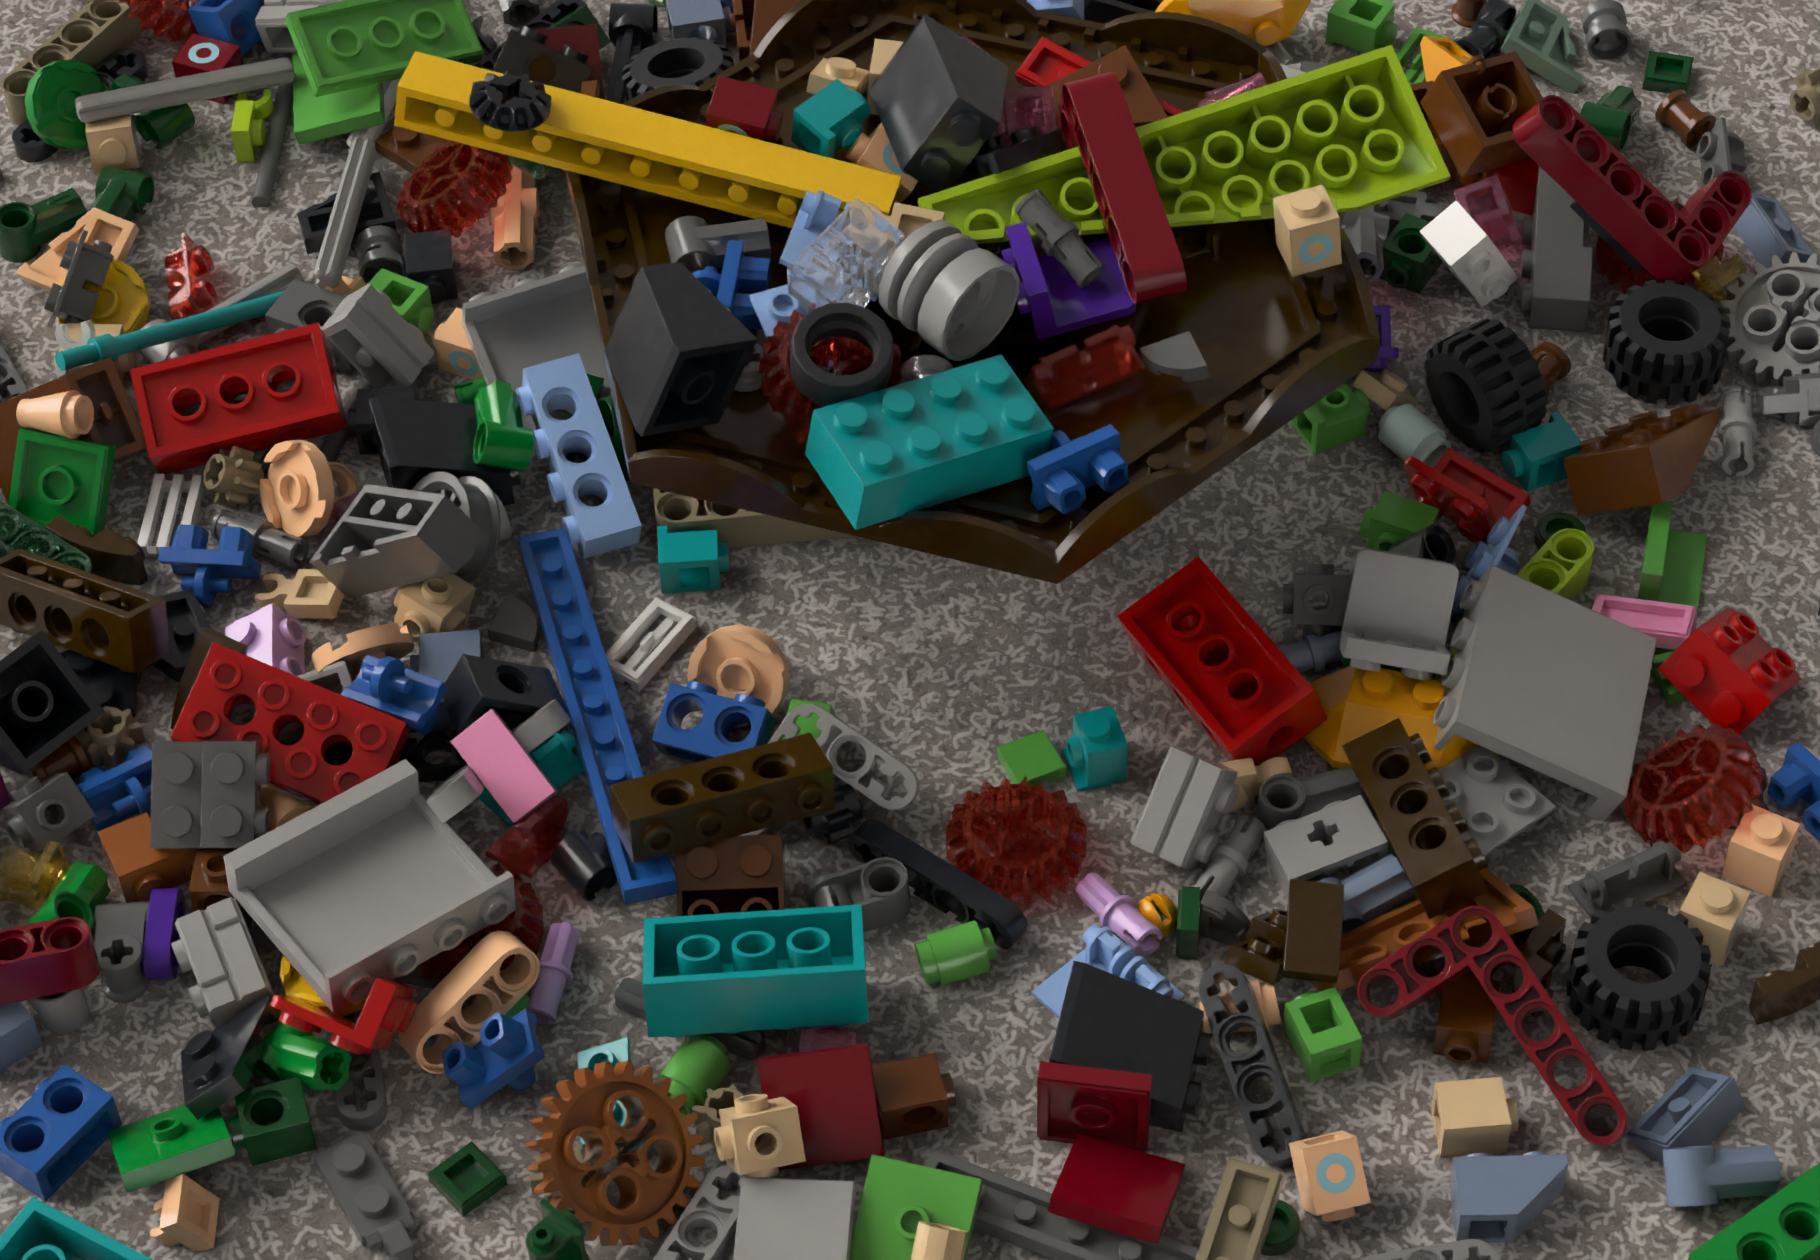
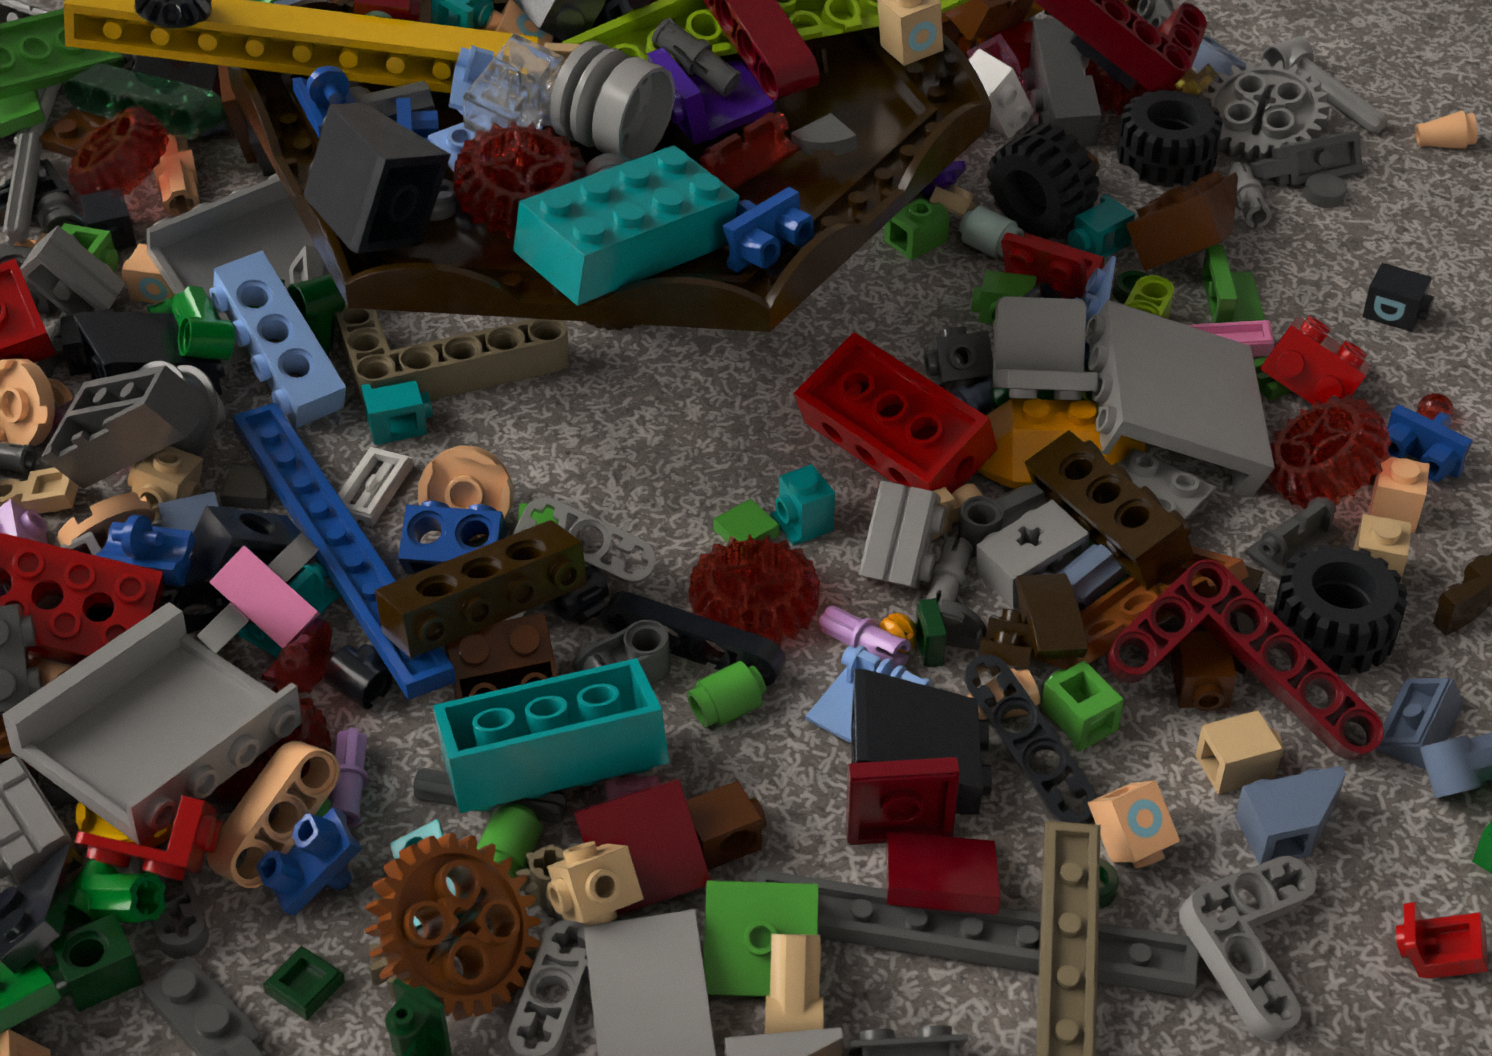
camera: 15 degrees left, 5 degrees down
(653, 232) = (324, 87): none -> blue hips
(840, 321) = (535, 129): black tyre -> none

